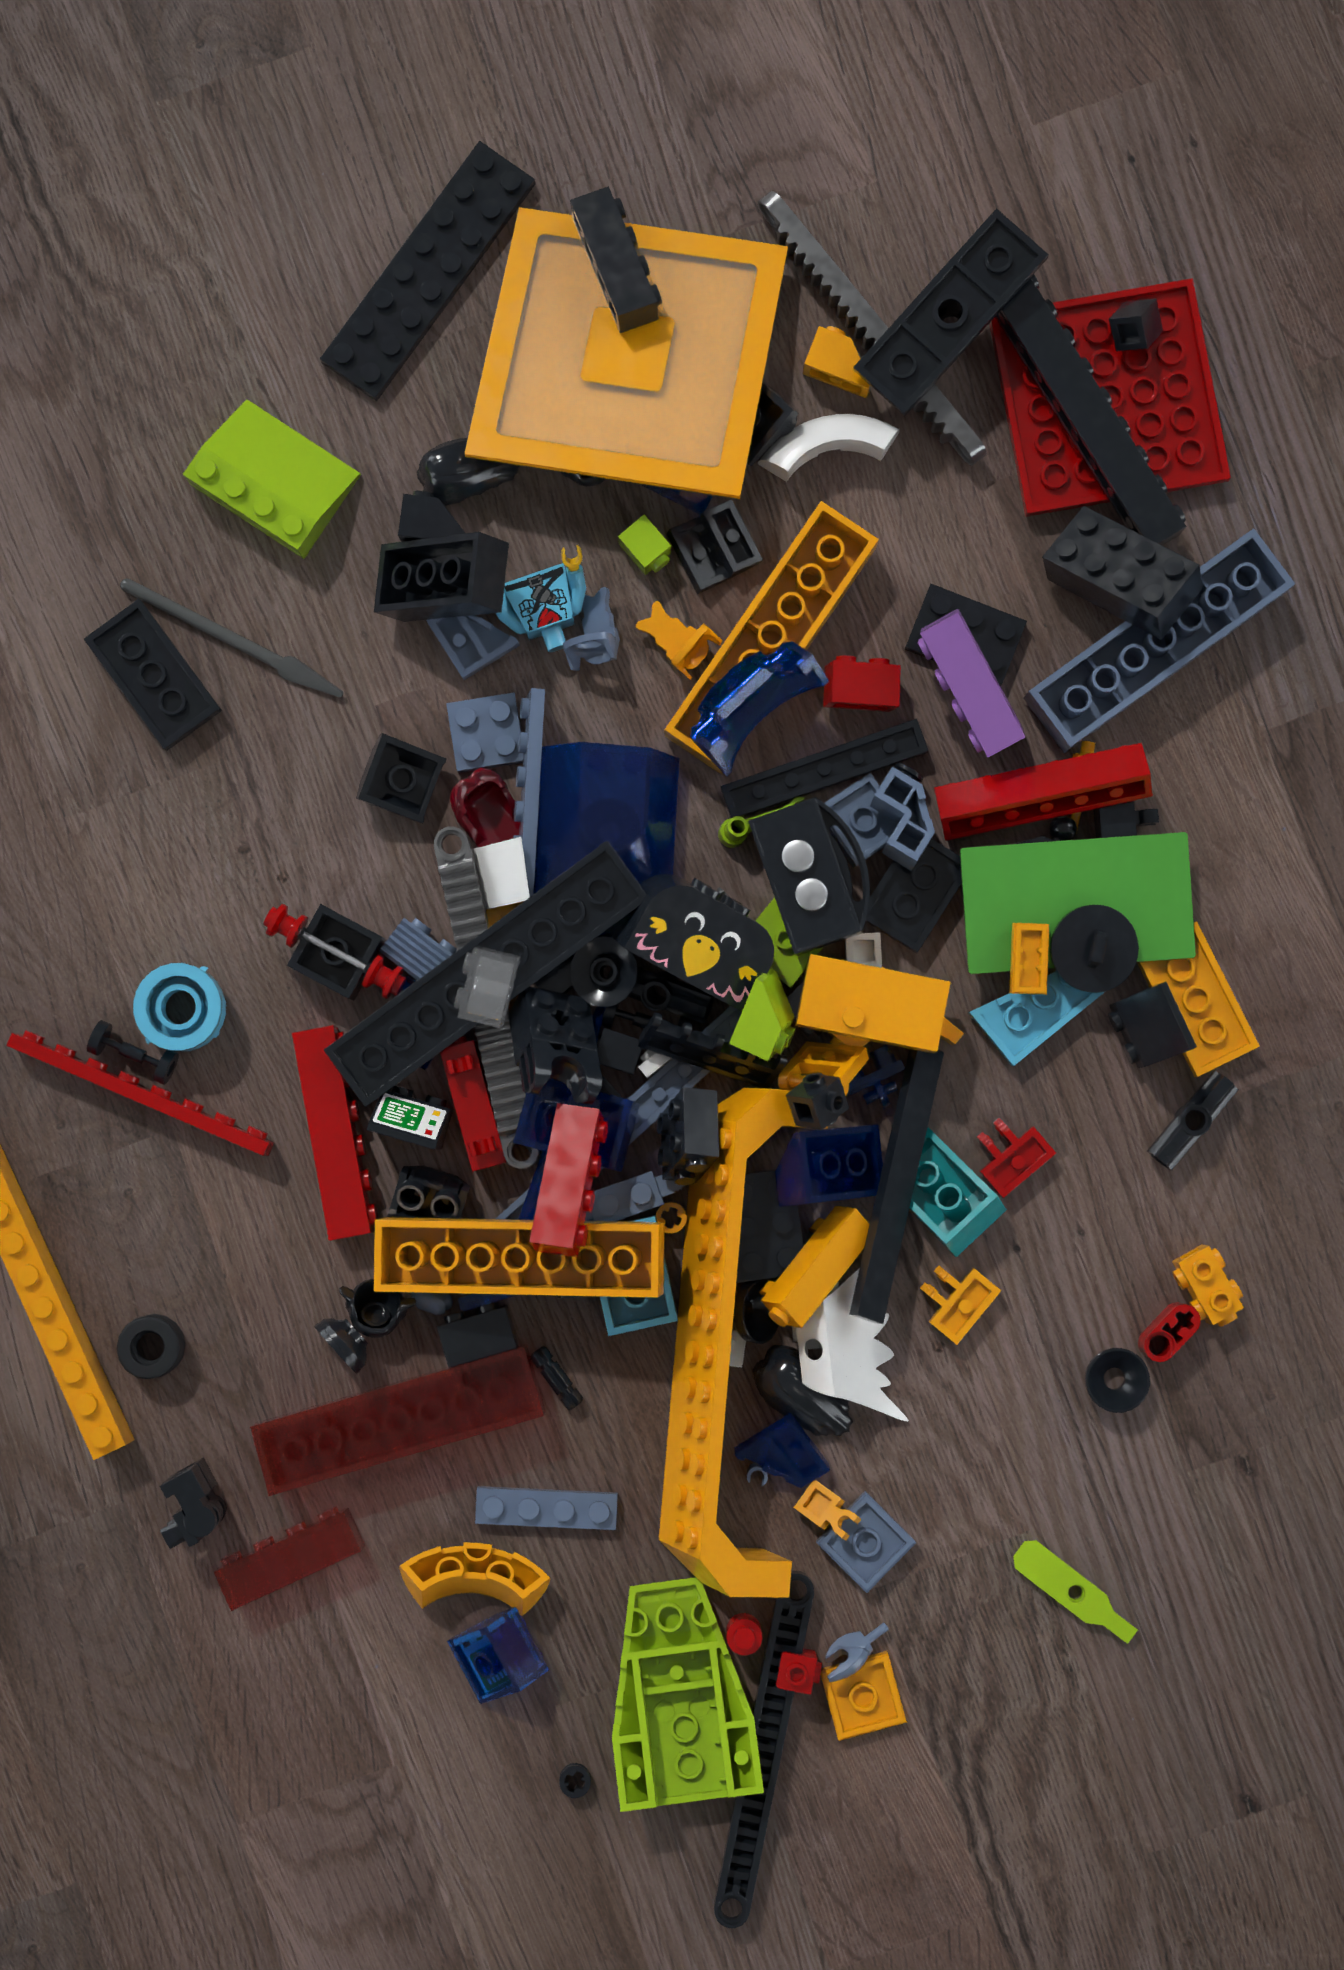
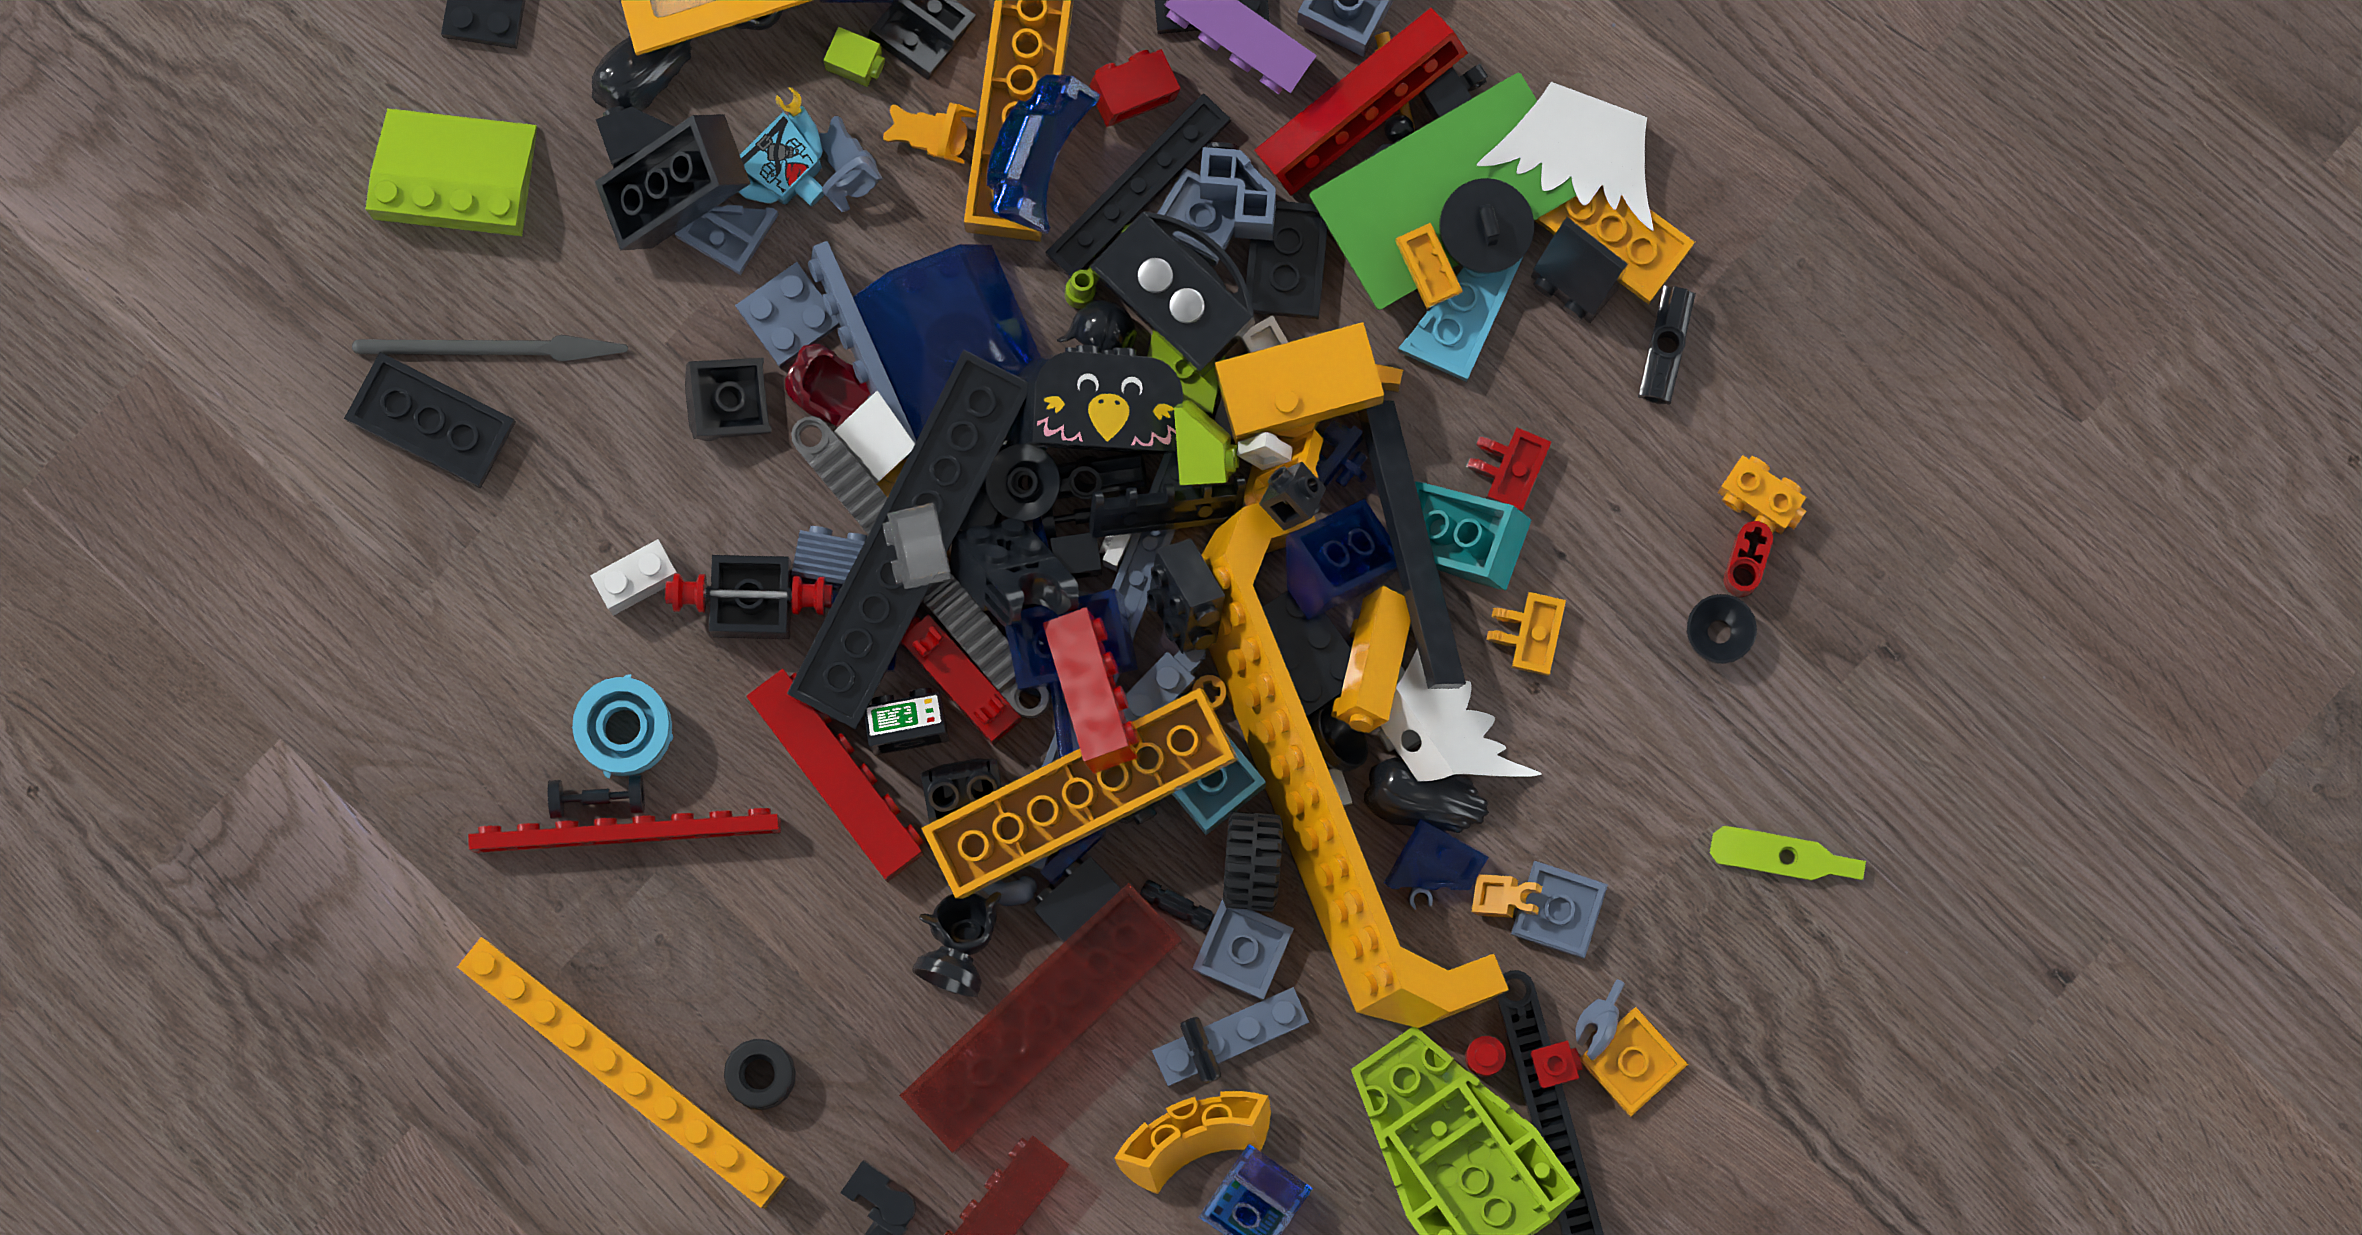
camera: 30 degrees left, 5 degrees down
(252, 888) = (634, 577): none -> white brick
(515, 1504) = (1203, 1057): none -> black piece
(592, 1443) = (1243, 950): none -> sand blue plate
(634, 1380) = (1252, 861): none -> black tyre
(735, 874) = (1102, 325): none -> black hair
(815, 1045) = (1264, 450): none -> white plate
(1211, 917) = (1584, 141): none -> white piece

